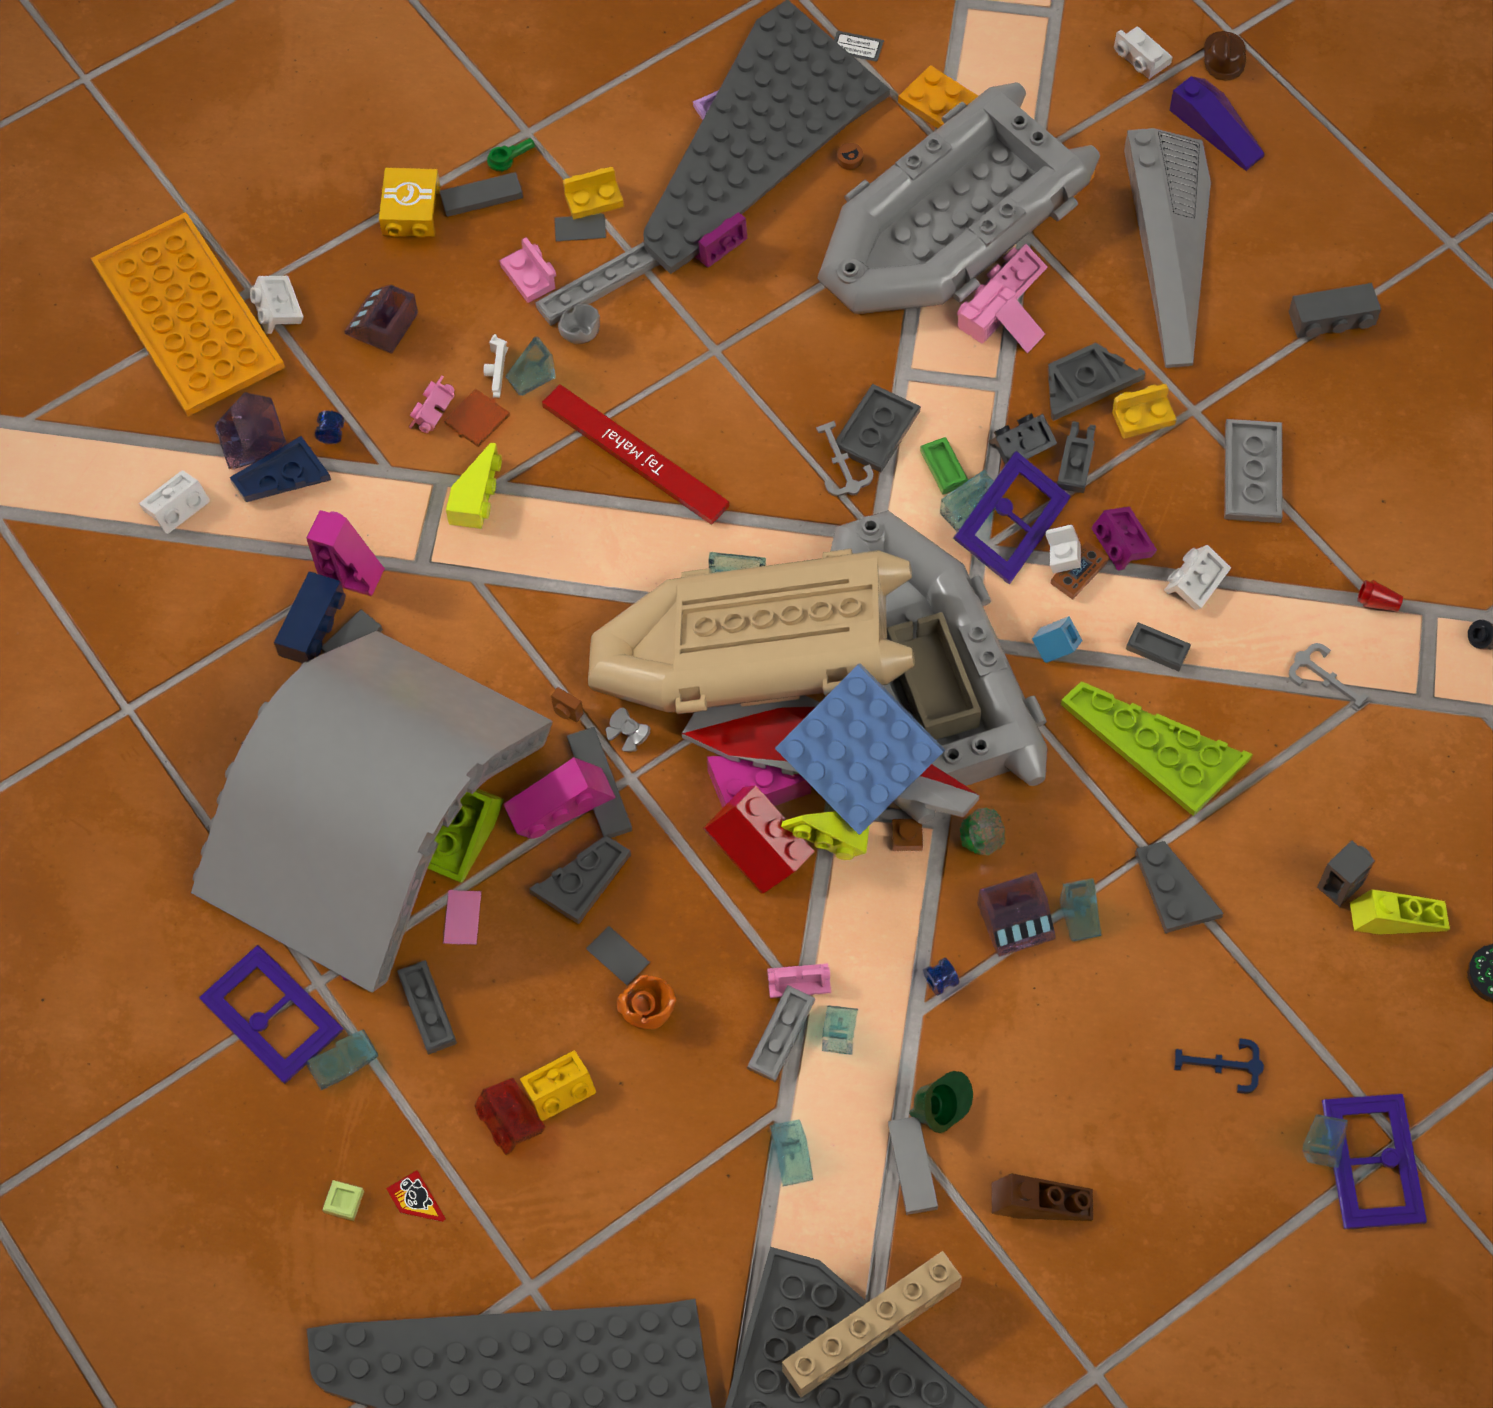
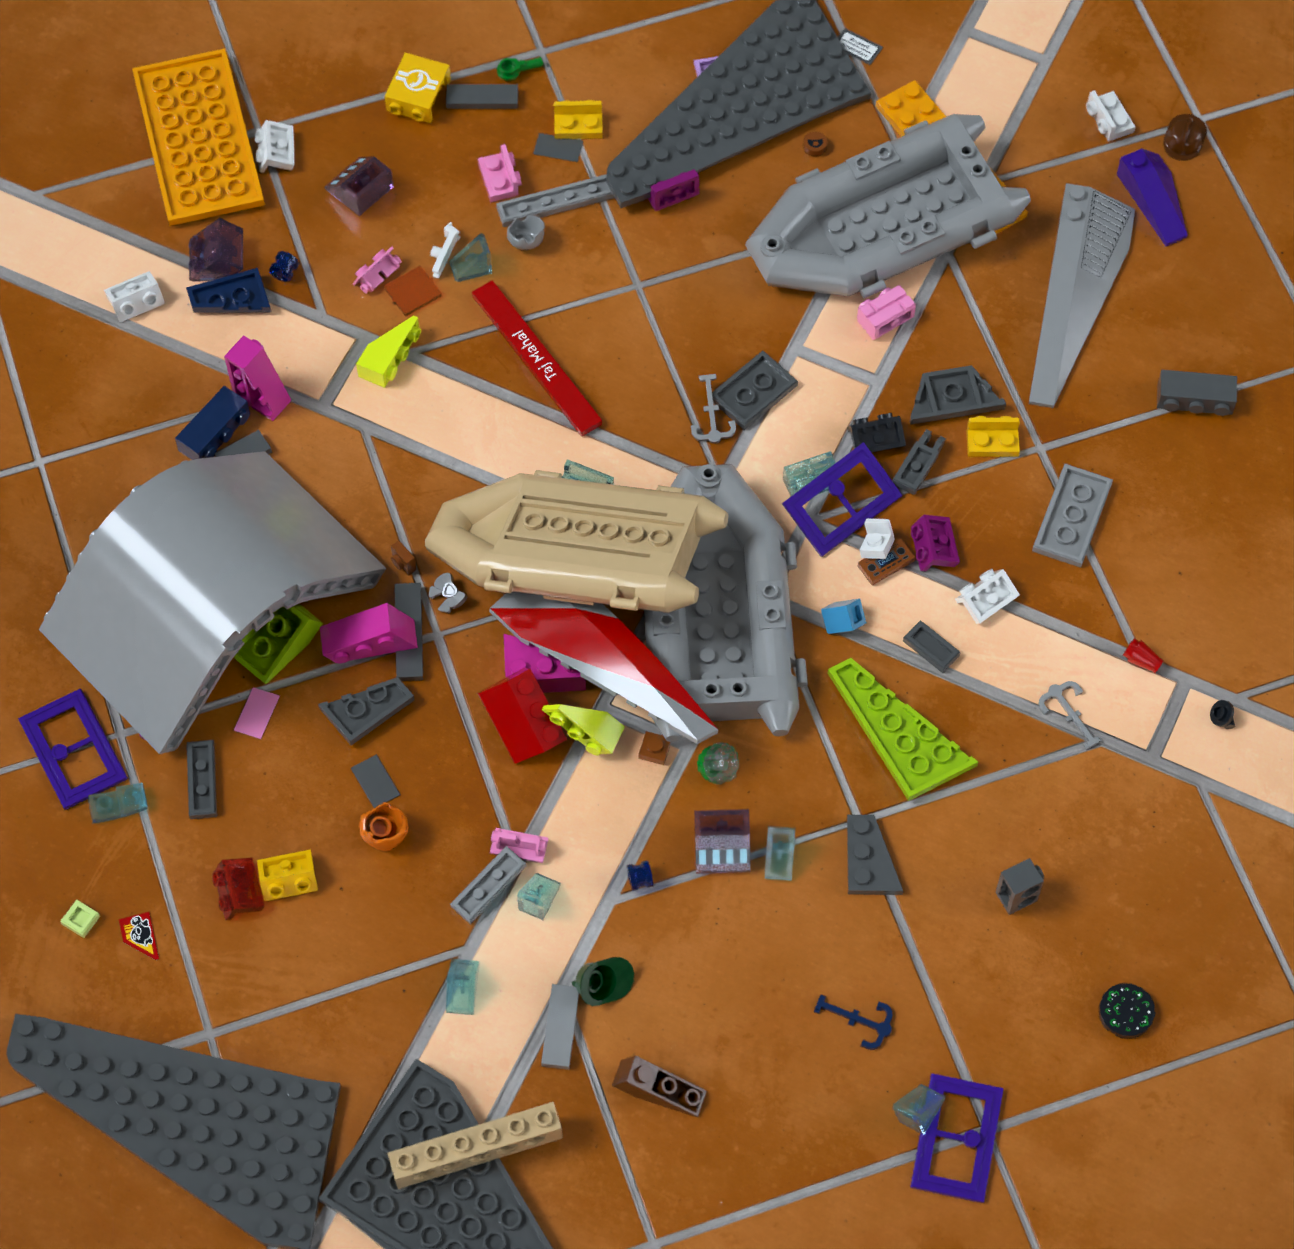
camera: 15 degrees right, 0 degrees up
(859, 749) = (626, 661): medium blue plate -> none
(938, 683) = (720, 620): dark tan piece -> none
(943, 465) = (800, 437): bright green tile -> none
(1018, 270) = (927, 284): bright pink bracket -> none
(1020, 324) = (910, 331): bright pink sticker -> none
(1397, 913) = (1055, 934): neon yellow slope -> none

